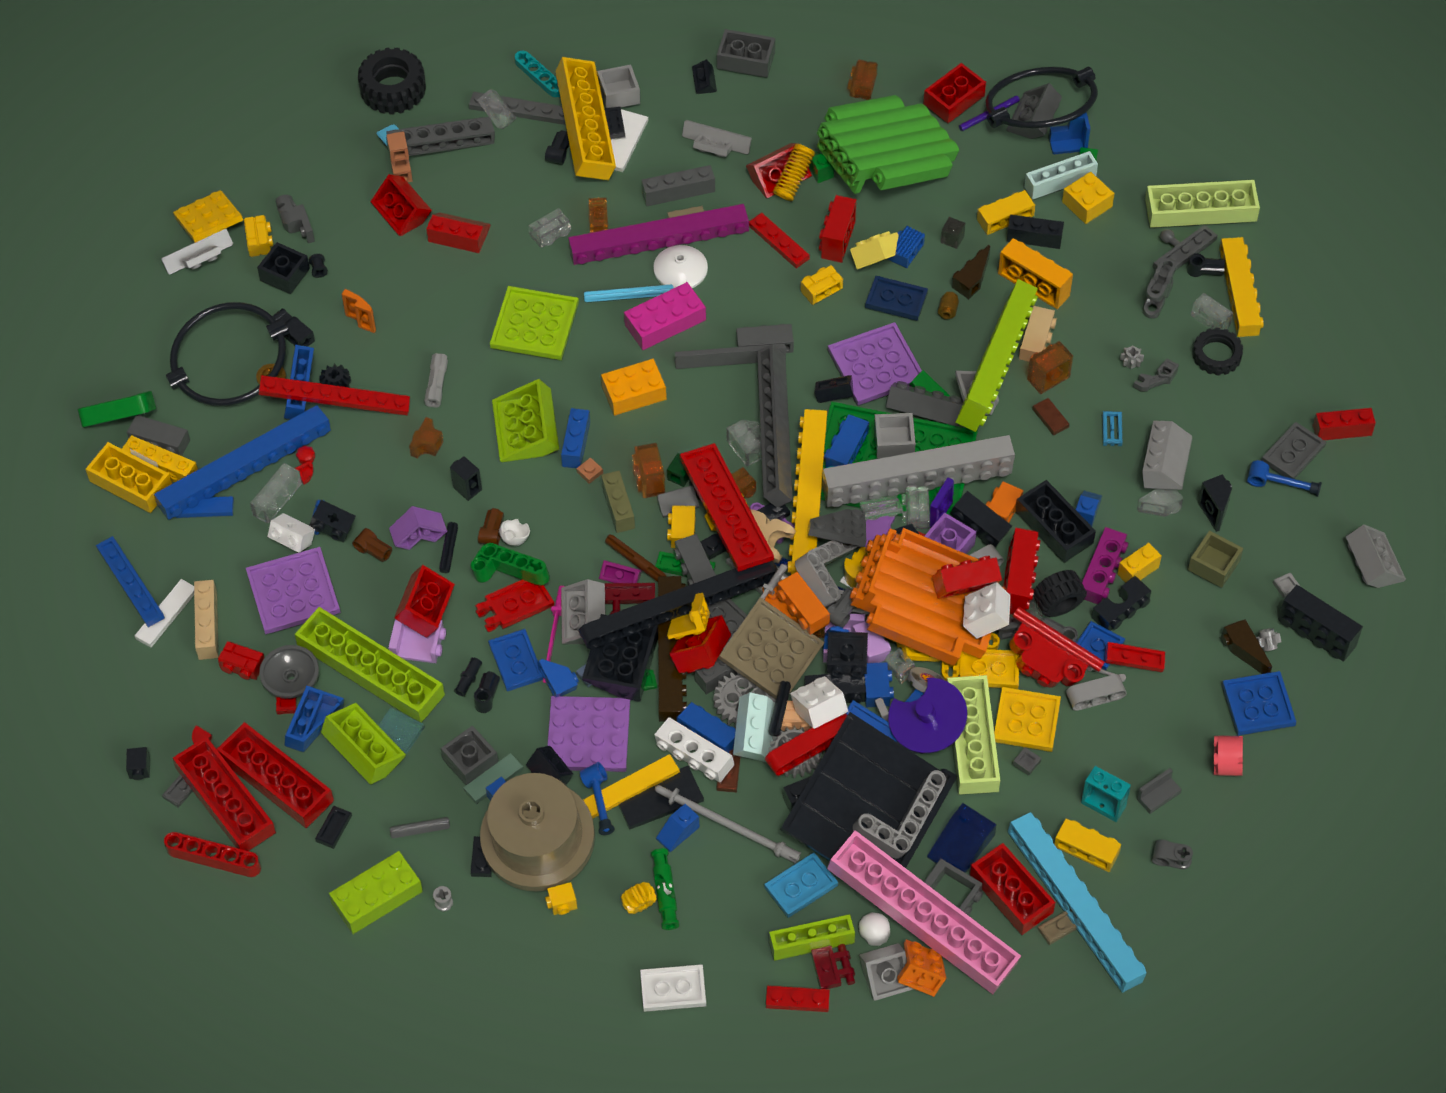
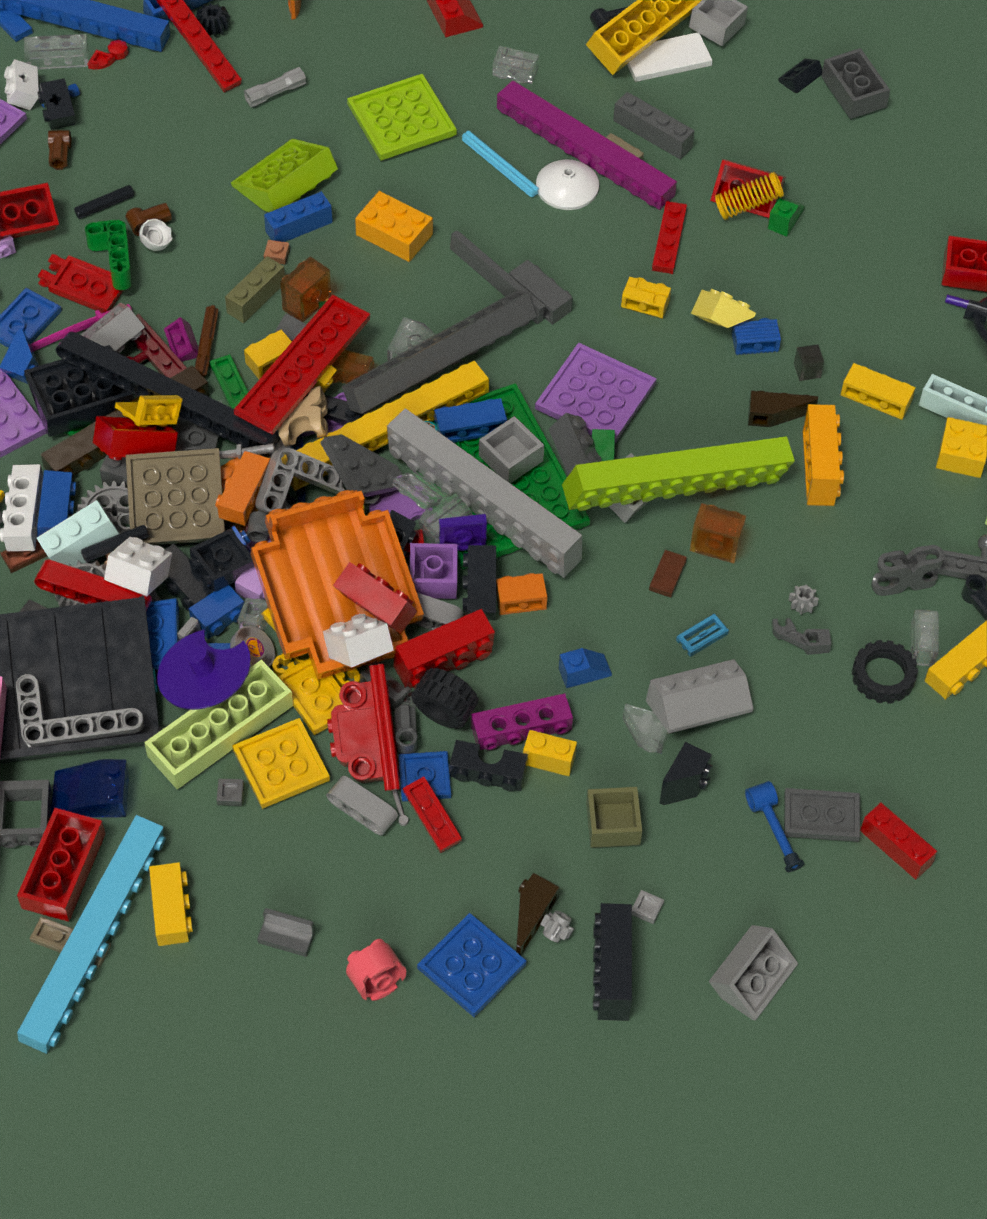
camera: 50 degrees right, 0 degrees up
(417, 525) = (102, 163): medium lavender brick -> none
(426, 440) = (203, 117): clear orange brick -> none
(465, 478) = (180, 165): black brick -> none
(598, 214) = (560, 88): clear orange brick -> none
(615, 122) = (676, 38): black plate -> none
(665, 316) = (495, 202): dark pink brick -> none
(693, 559) = (234, 381): dark grey brick -> none
(715, 139) = (733, 122): light grey bracket -> none
(834, 389) = (533, 377): black slope -> none
(838, 228) = (719, 267): red brick -> none
(863, 79) = (921, 188): clear orange brick -> none
(885, 143) = (852, 242): bright green panel -> none
(896, 298) = (688, 364): dark blue plate -> none
(948, 305) = (719, 410): pearl gold brick -> none
(1035, 231) = (877, 428): black brick -> none
(1037, 332) = (757, 500): tan brick -> none
(1055, 521) = (536, 647): black brick -> none
(1113, 798) = (233, 880): teal window -> none
(1170, 853) = (216, 988): dark grey piece -> none

